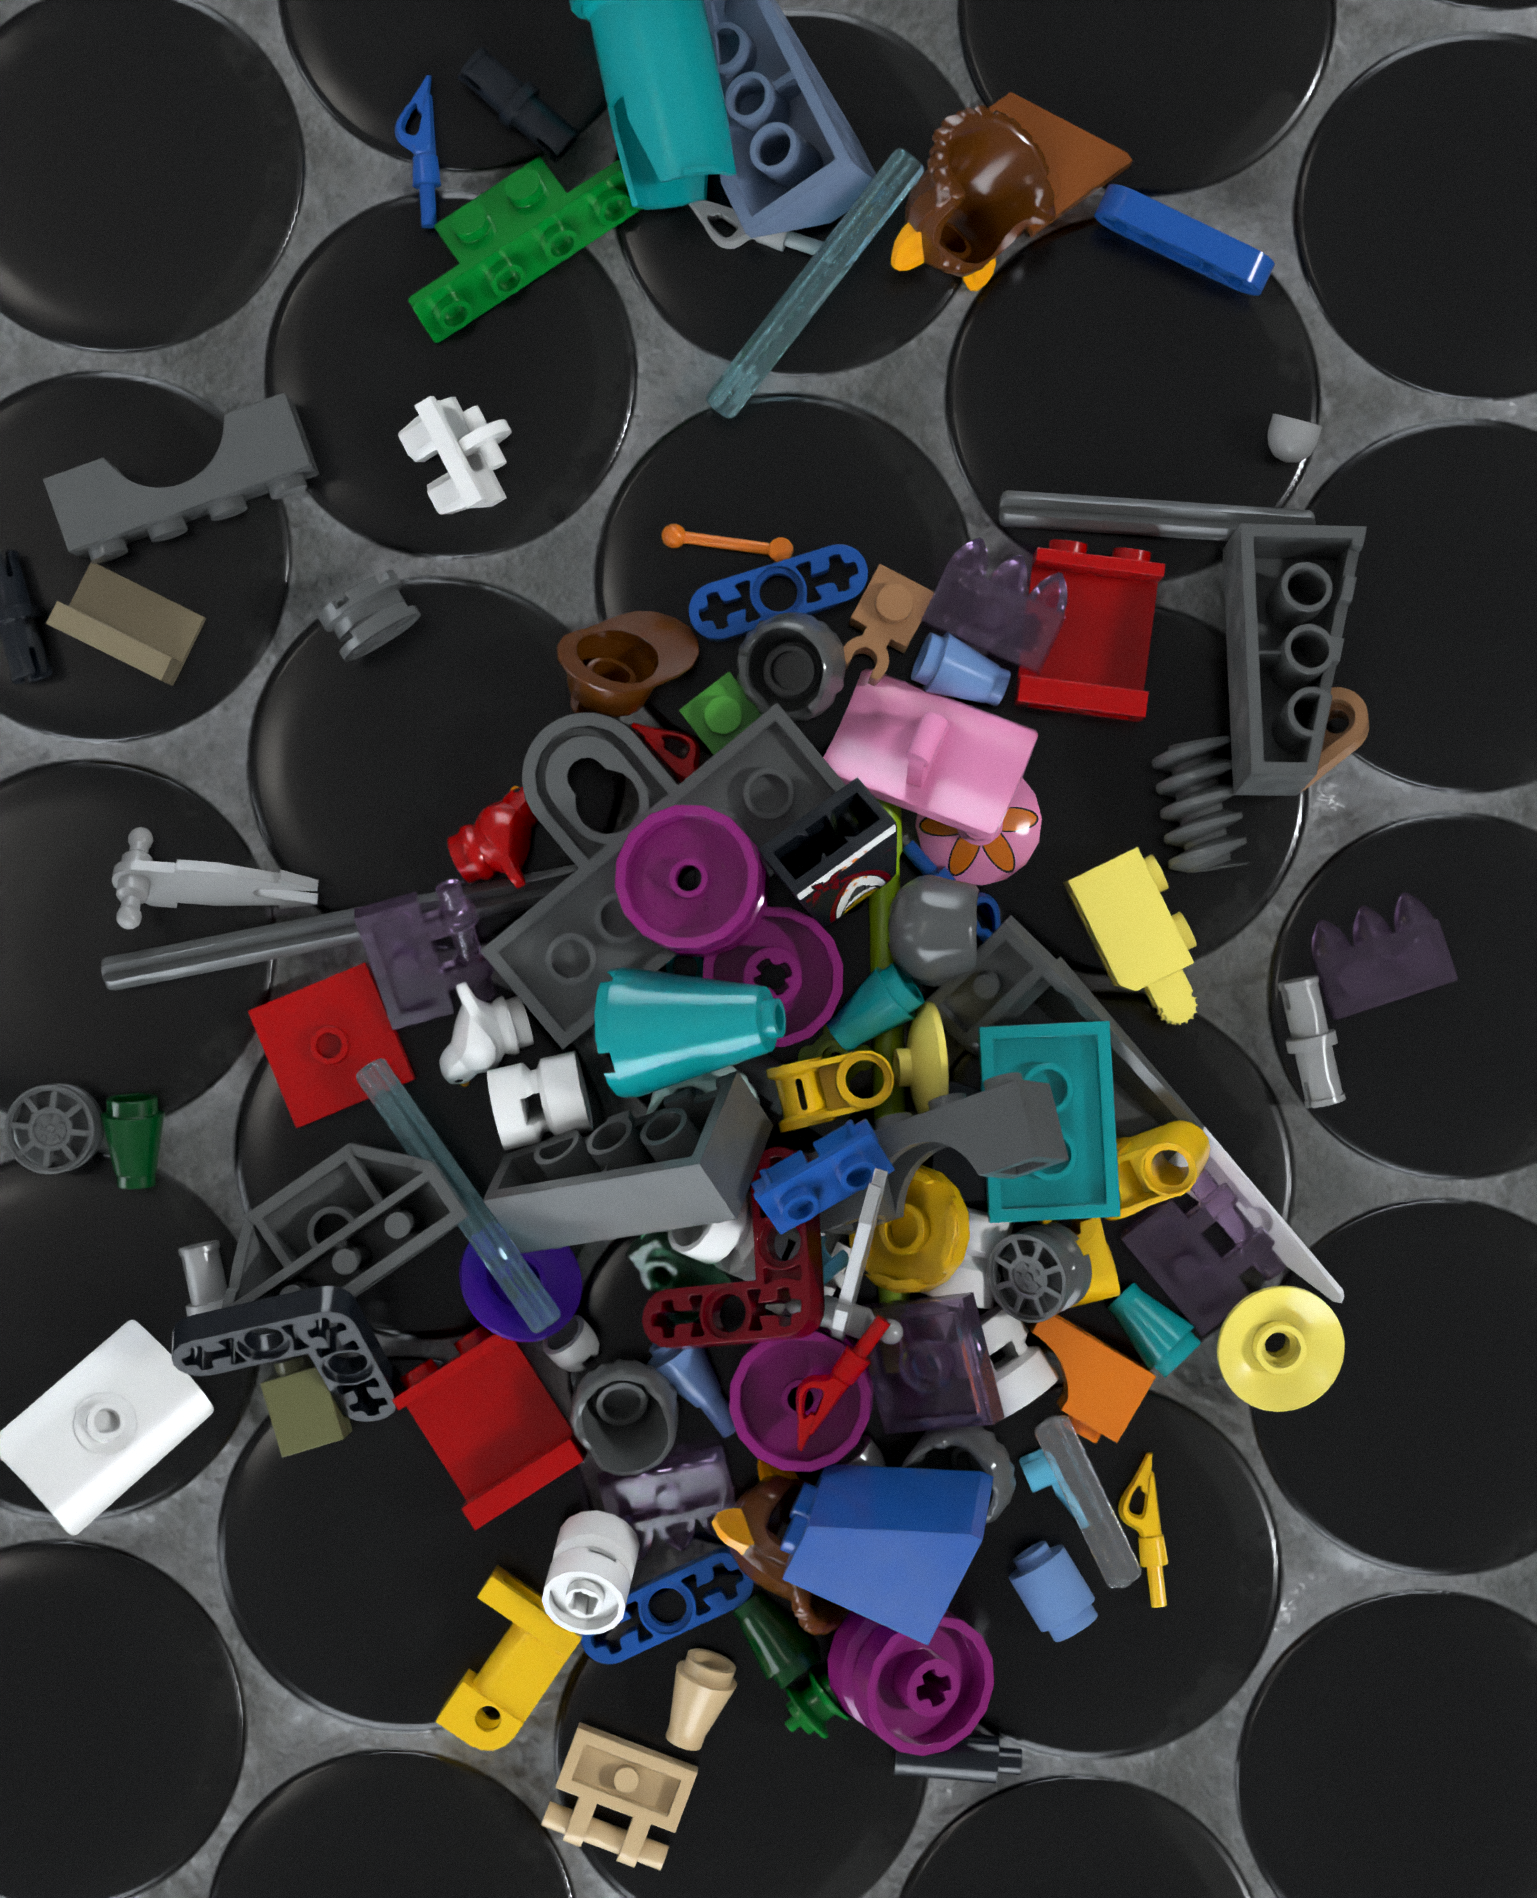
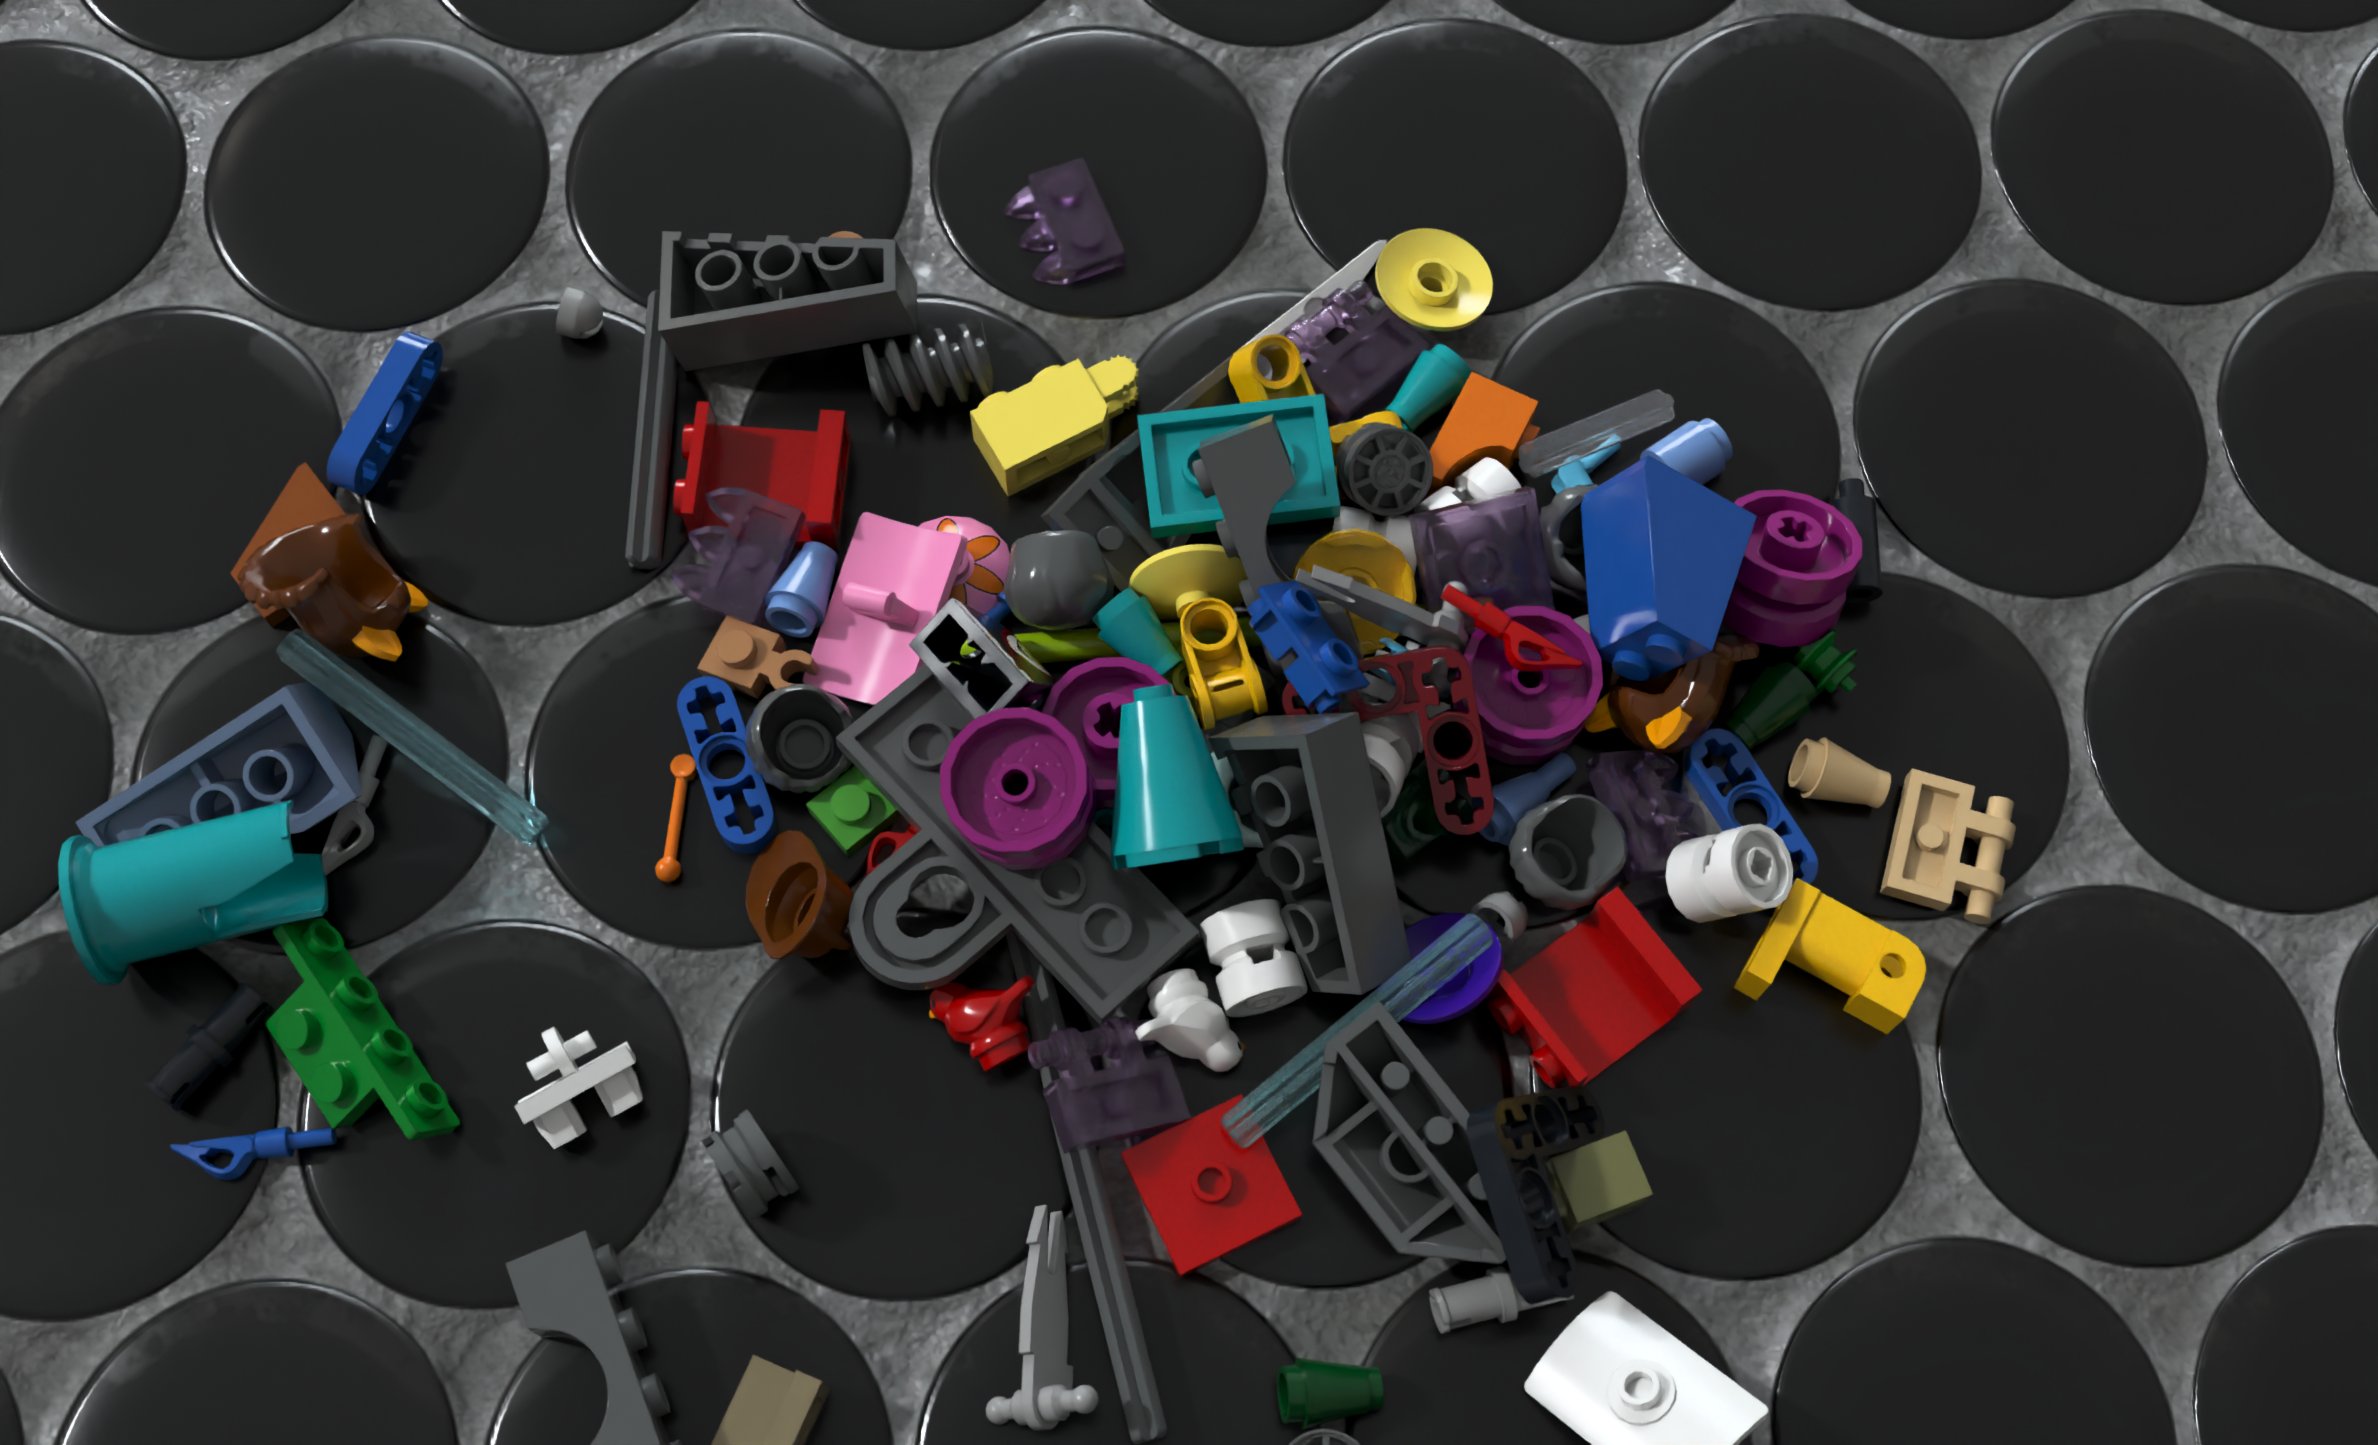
camera: 95 degrees left, 20 degrees down
(1151, 1540) = (1612, 389): yellow hand -> none
(1311, 1041) = (1146, 271): light grey pin -> none

